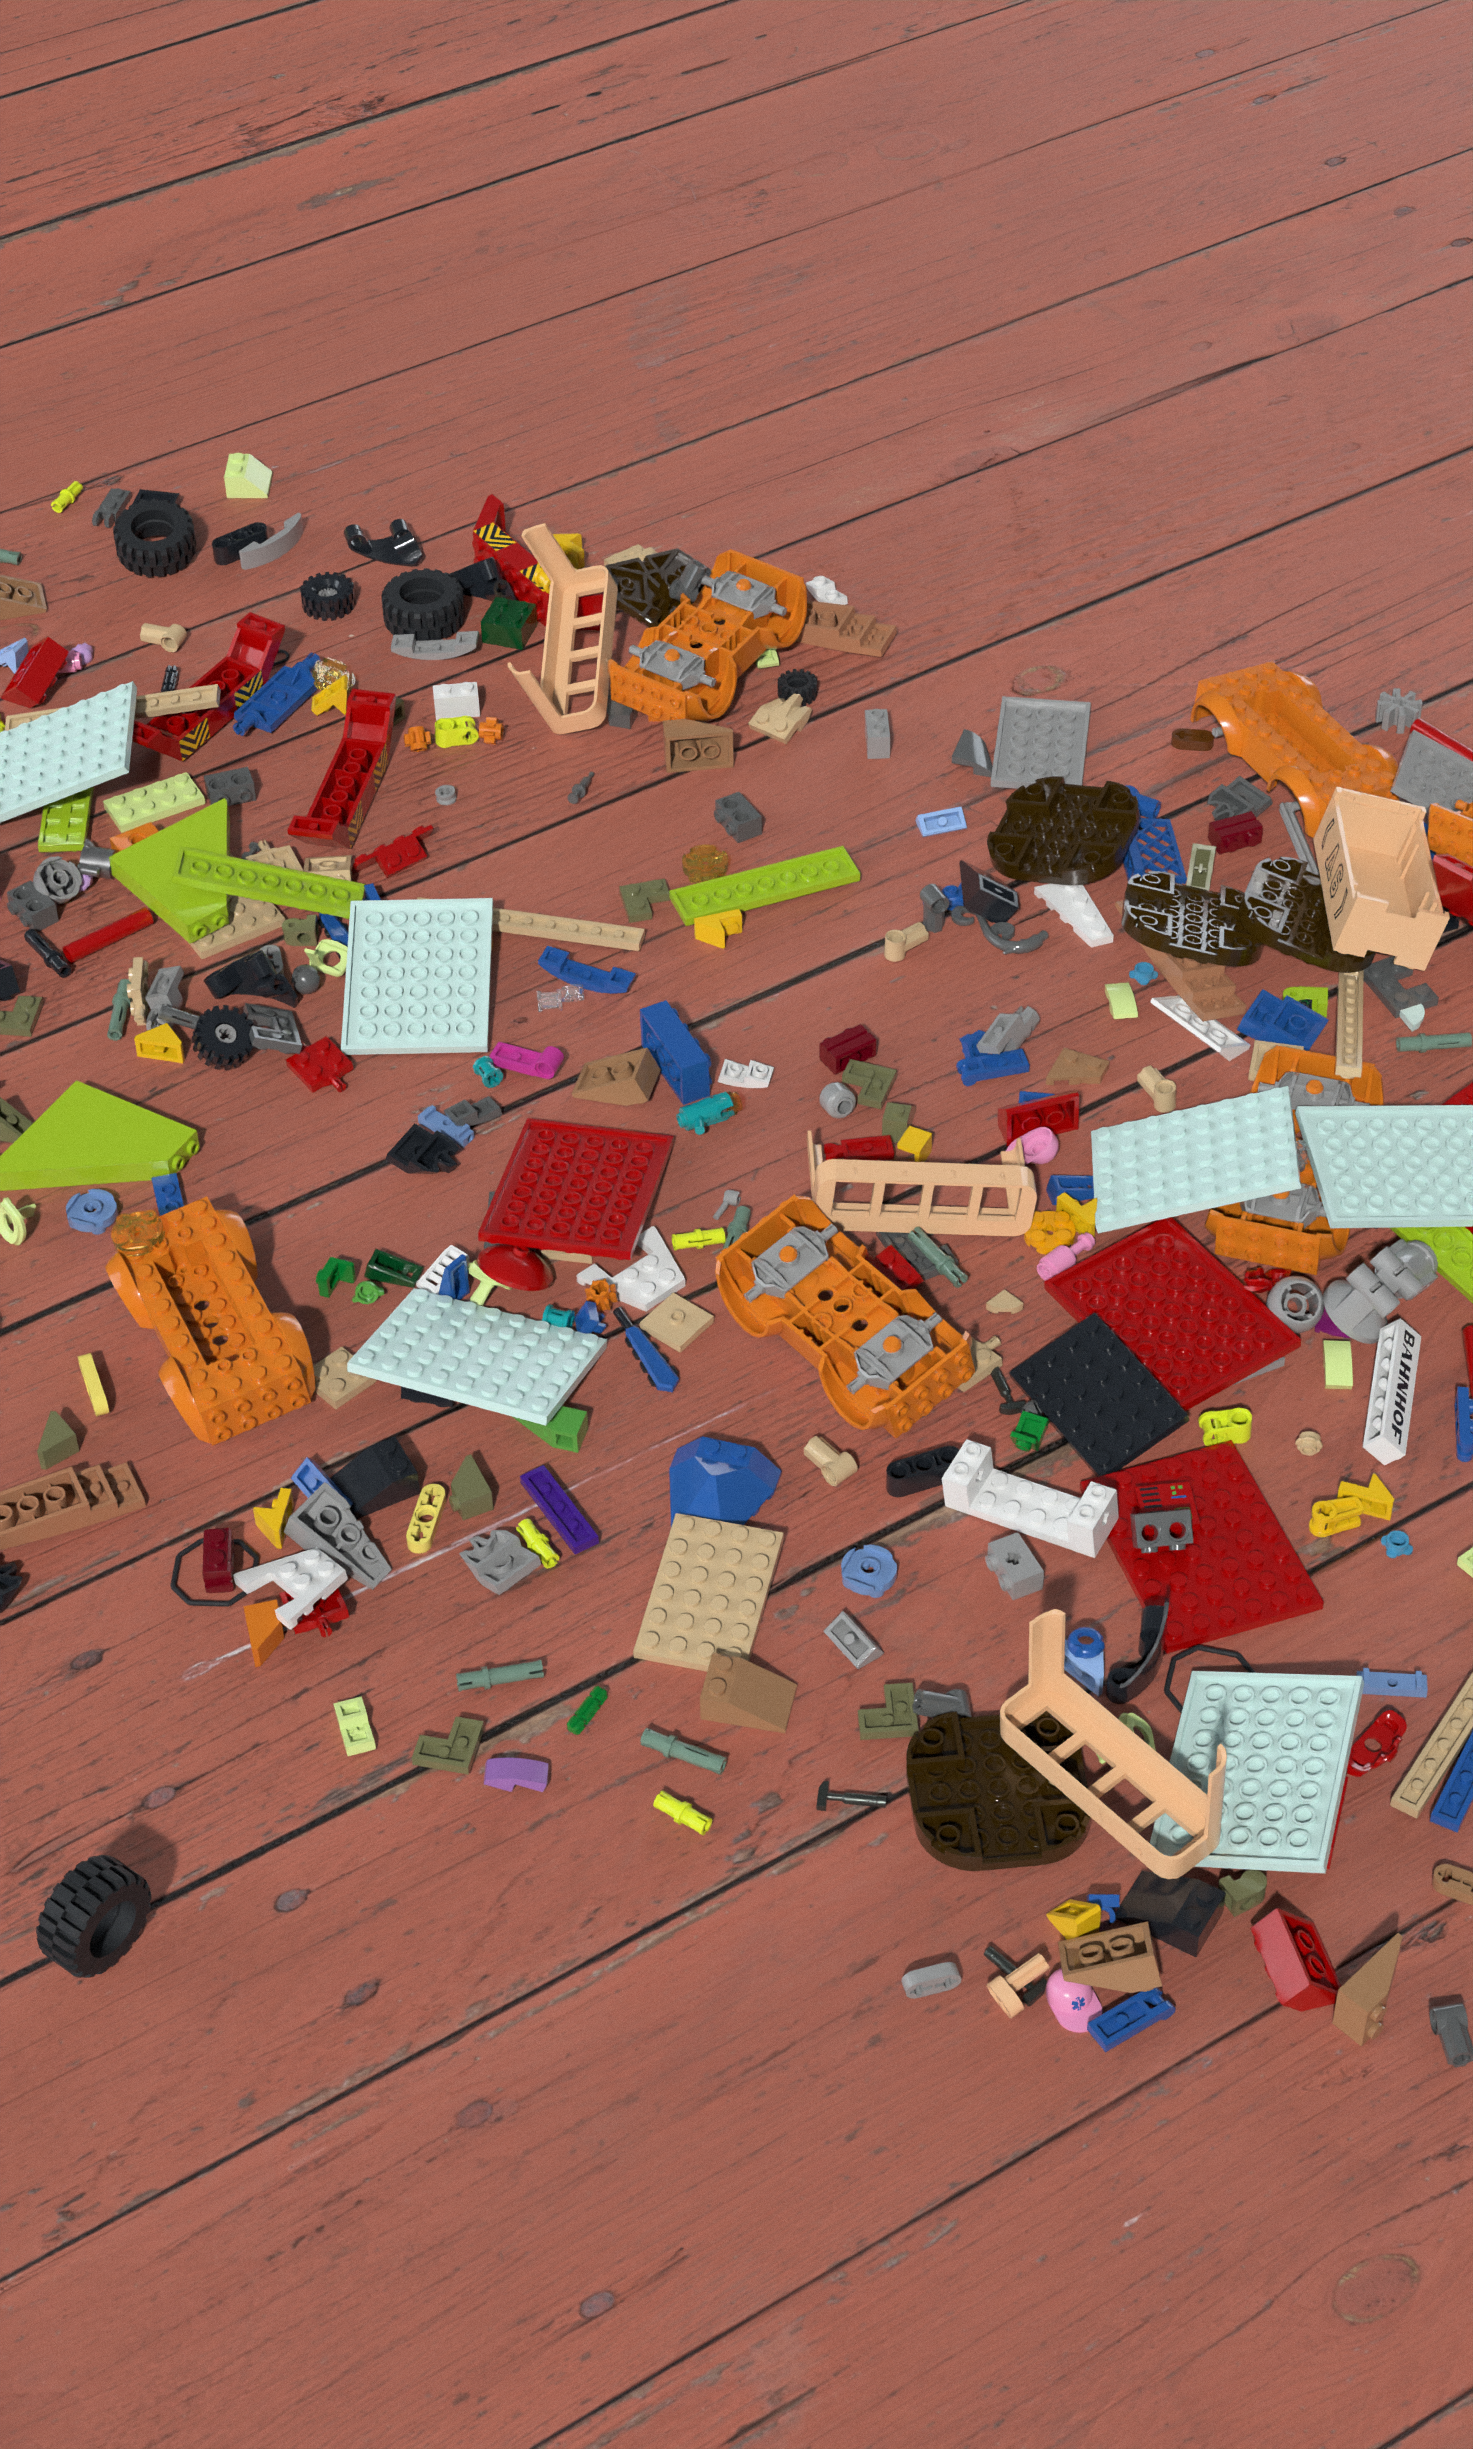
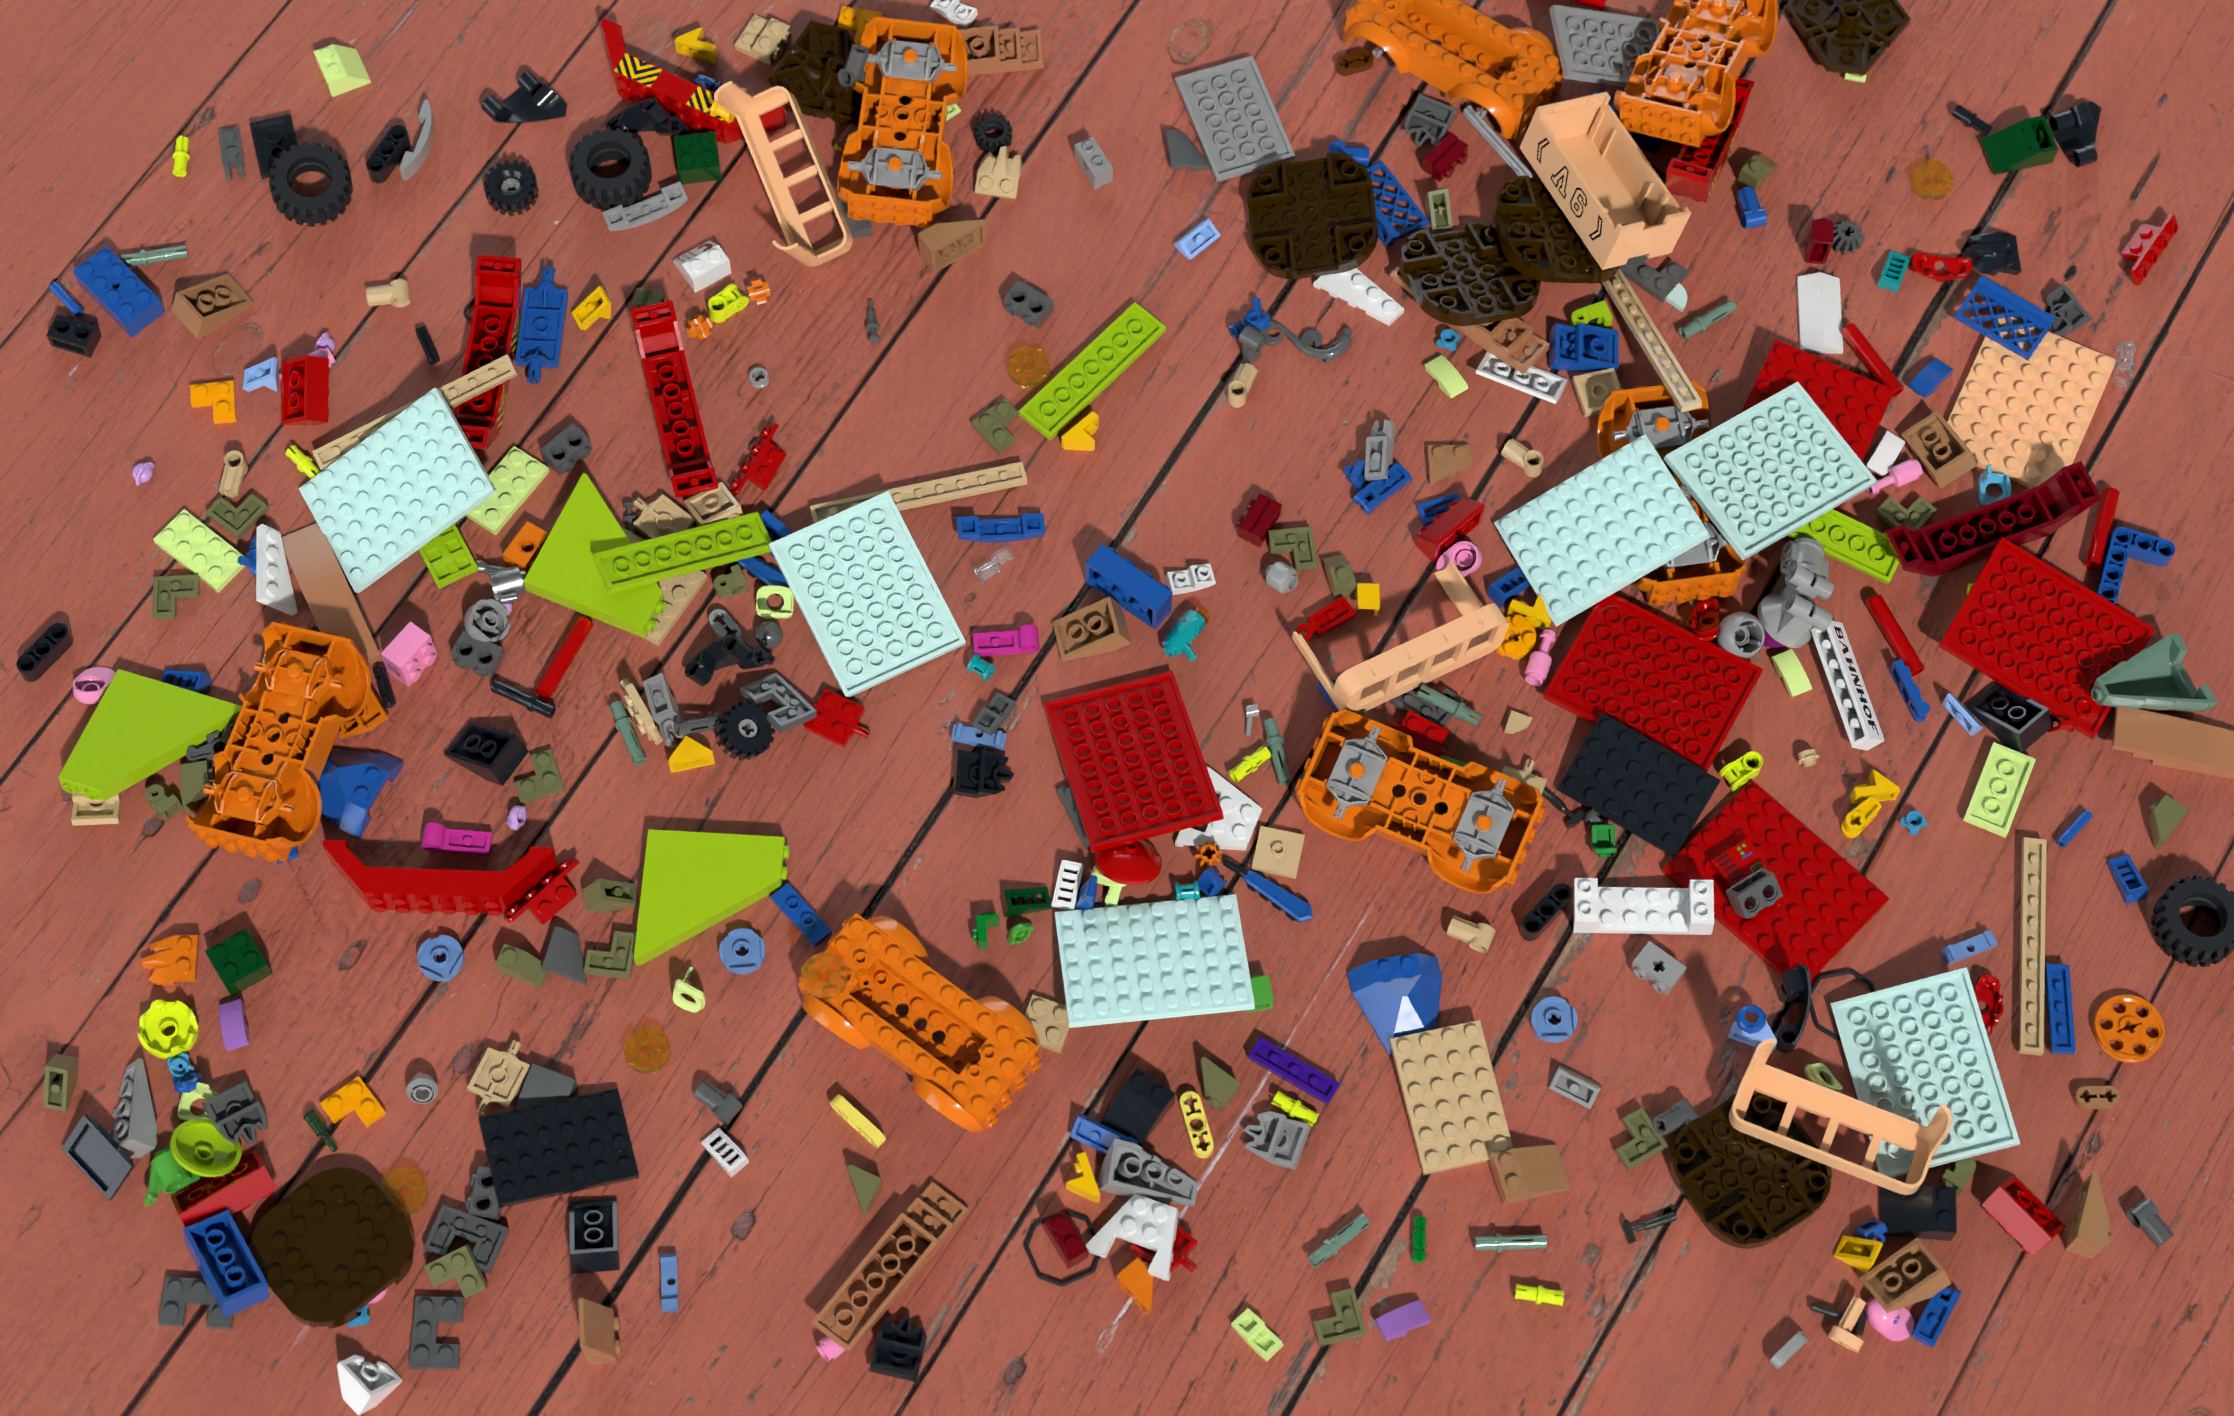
camera: 30 degrees left, 20 degrees up
(323, 672) = (573, 291): clear yellow plate -> none
(987, 894) = (1284, 308): black slope -> none

